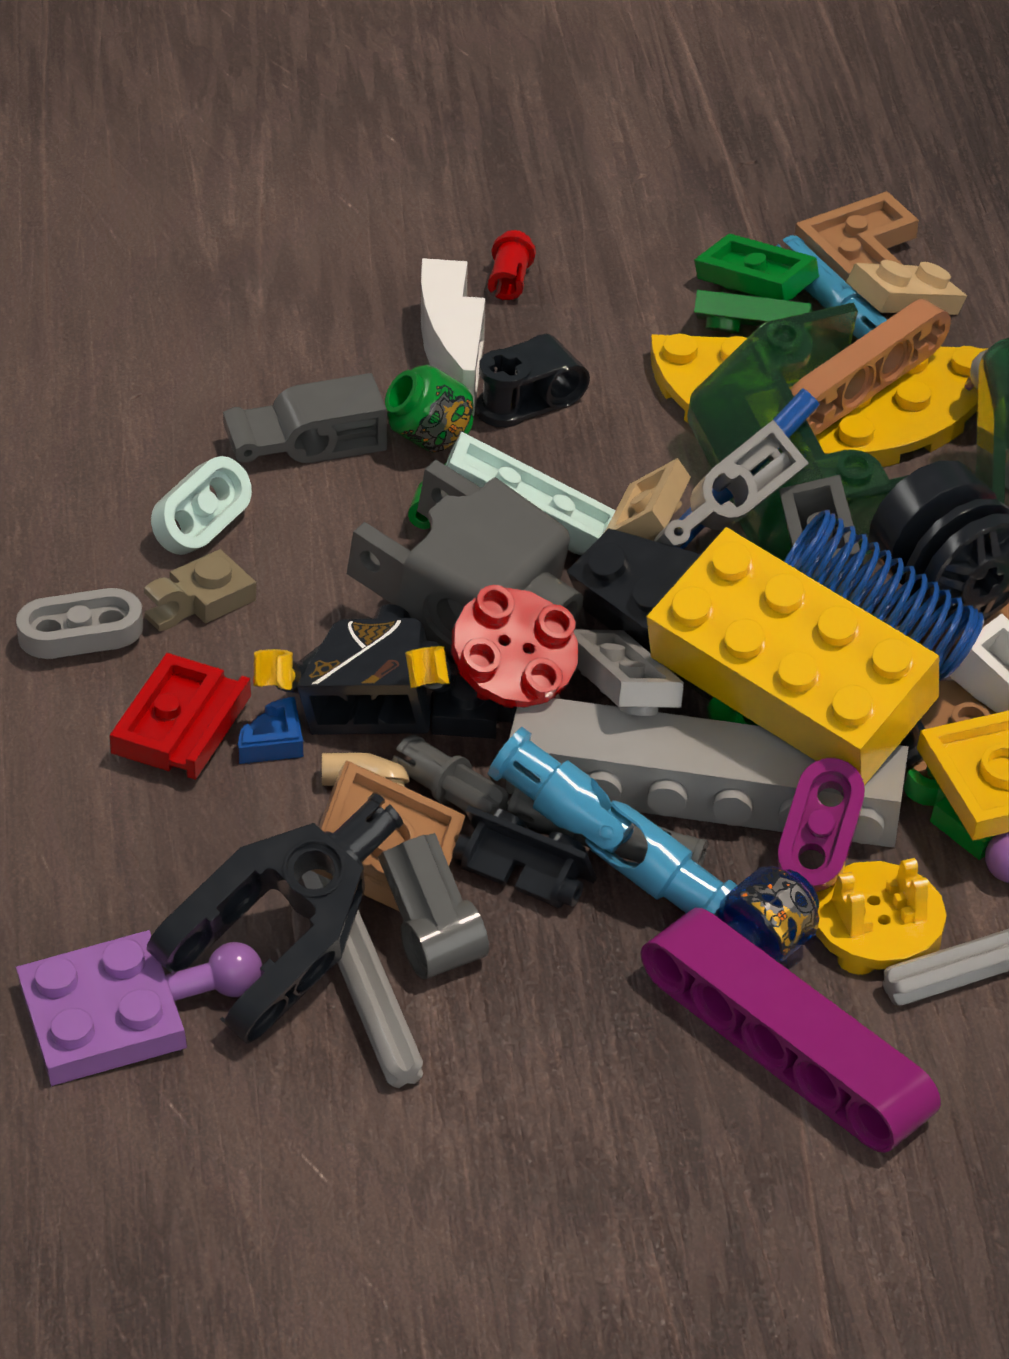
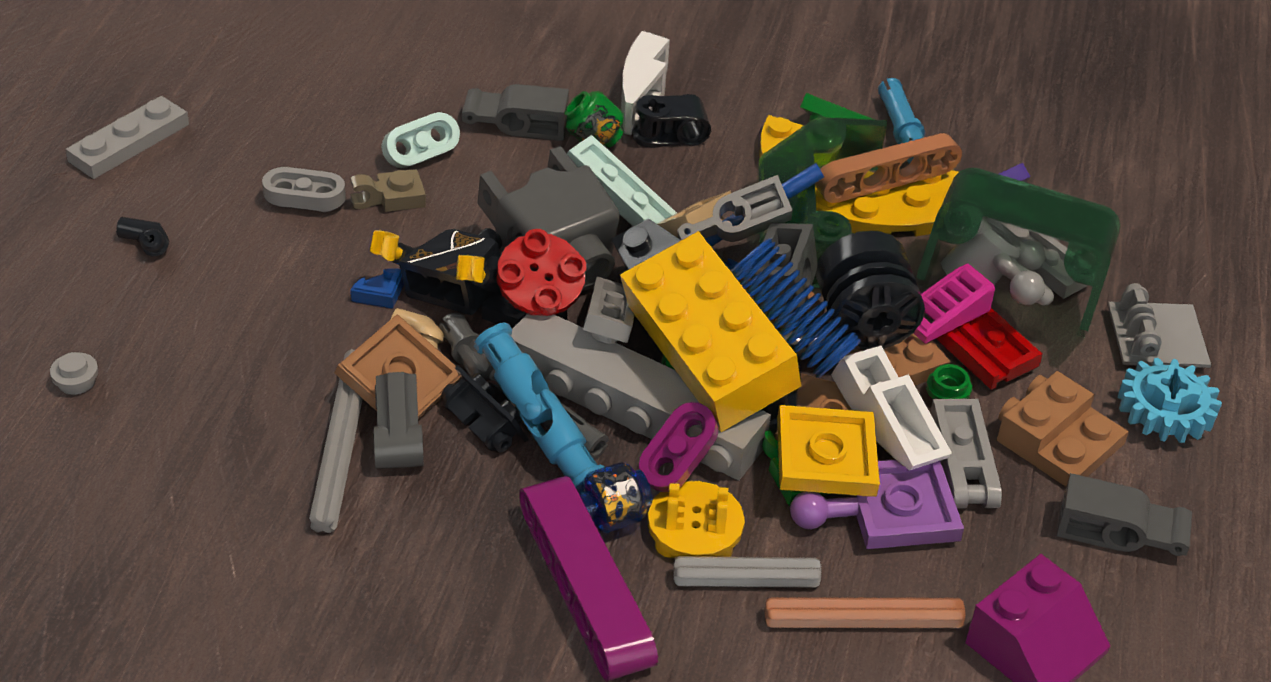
camera: 20 degrees right, 0 degrees up
(117, 1004) = (176, 421): medium lavender plate -> none
(180, 715) = (326, 260): red plate -> none
(279, 865) = (279, 369): black piece -> none
(512, 257) = (709, 46): red pin -> none
(756, 268) = (859, 92): green plate -> none
(858, 232) = (936, 91): medium nougat plate -> none
(896, 286) = (966, 131): tan plate -> none

